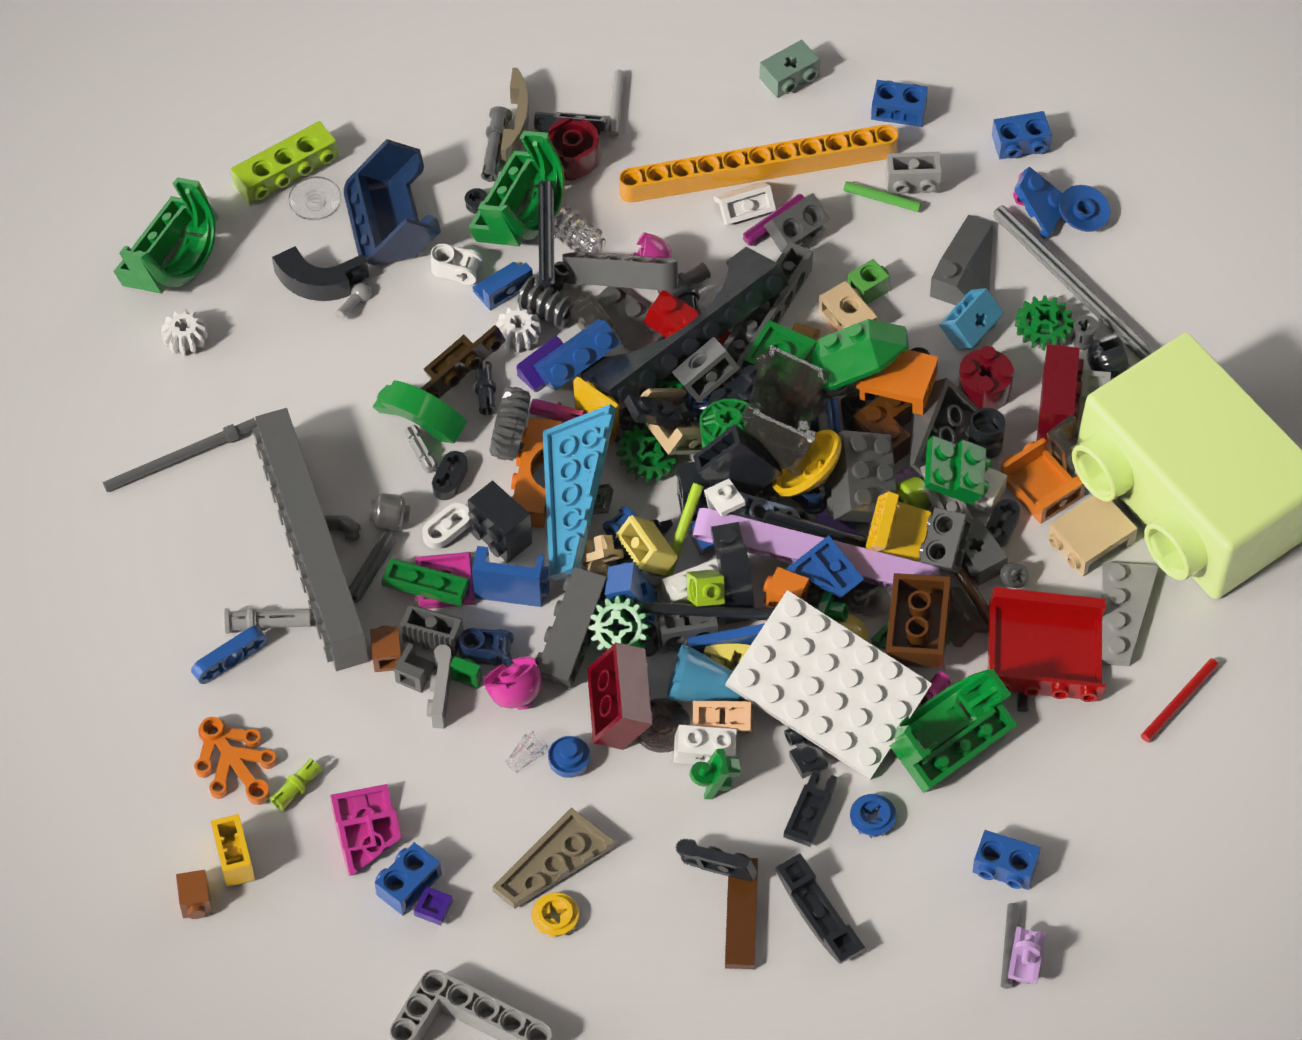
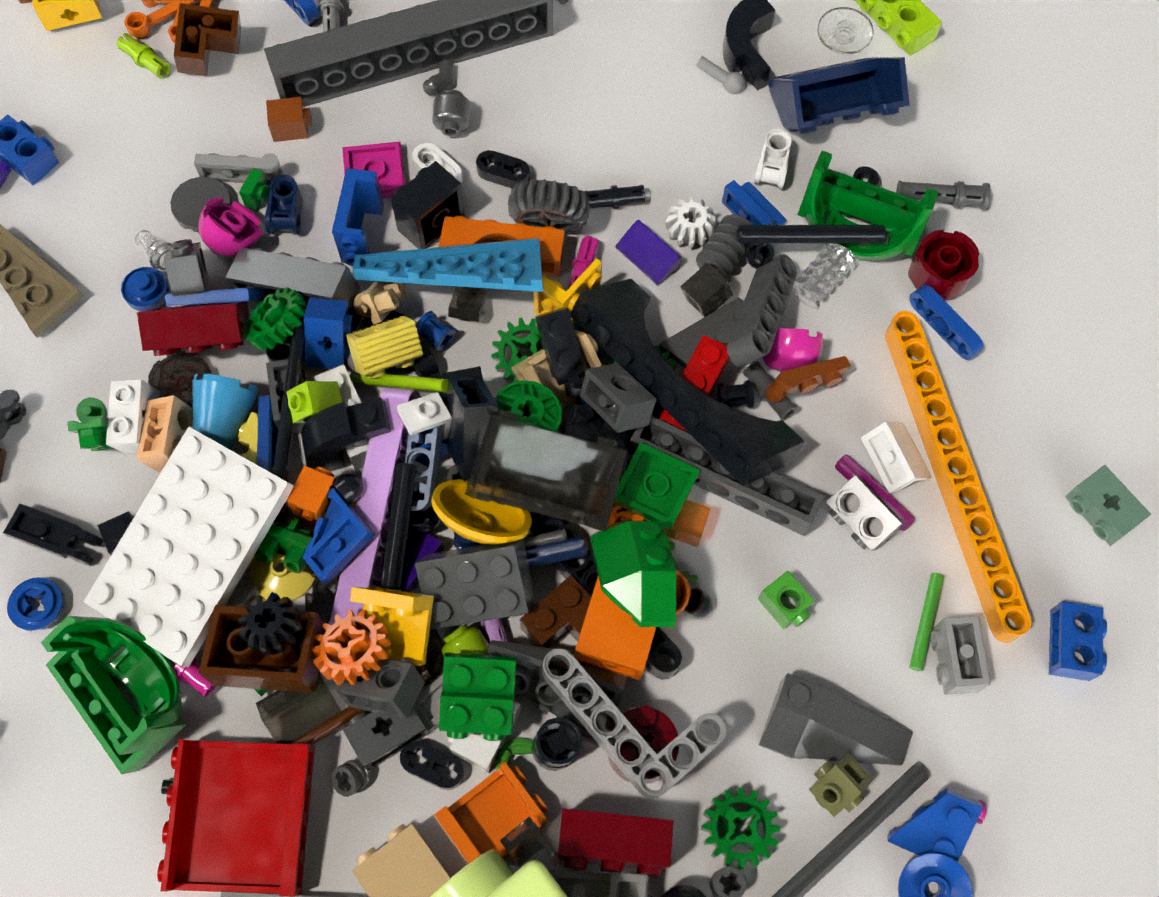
camera: 85 degrees right, 10 degrees up
(290, 725) = (201, 31): none -> reddish brown brick
(364, 824) = (91, 113): dark pink slope -> none
(372, 565) = (392, 105): dark grey axle -> none
(413, 670) = (262, 140): dark grey panel -> none
(421, 408) = (567, 128): green arch -> none
(421, 448) = (536, 142): light grey axle -> none
(425, 582) = (365, 142): green tile -> none
(431, 628) = (301, 151): dark grey brick -> none
(459, 360) = (635, 161): dark brown bracket -> none
(475, 721) = (191, 198): none -> dark grey tile
(518, 95) = (986, 216): dark tan slope -> none
(544, 121) = (987, 277): black hinge -> none
(560, 708) = (186, 268): none -> brick
(576, 354) = (648, 272): blue brick -> none
(587, 688) = (217, 296): none -> tile
(616, 102) = (1033, 316): light grey bar -> none
(623, 155) = (946, 322): none -> blue beam
(681, 250) = (807, 378): none -> dark orange plate
(785, 557) = (349, 486): none -> black hinge
(843, 299) = (746, 559): tan brick -> none
(910, 585) = (277, 631): none -> black gear
(932, 549) = (351, 647): none -> orange gear
(971, 319) = (746, 728): dark azure brick -> none
(1007, 361) = (625, 732): none -> light grey beam
(1011, 256) = (840, 784): none -> olive brick
(1021, 135) = (1057, 801): blue brick -> none

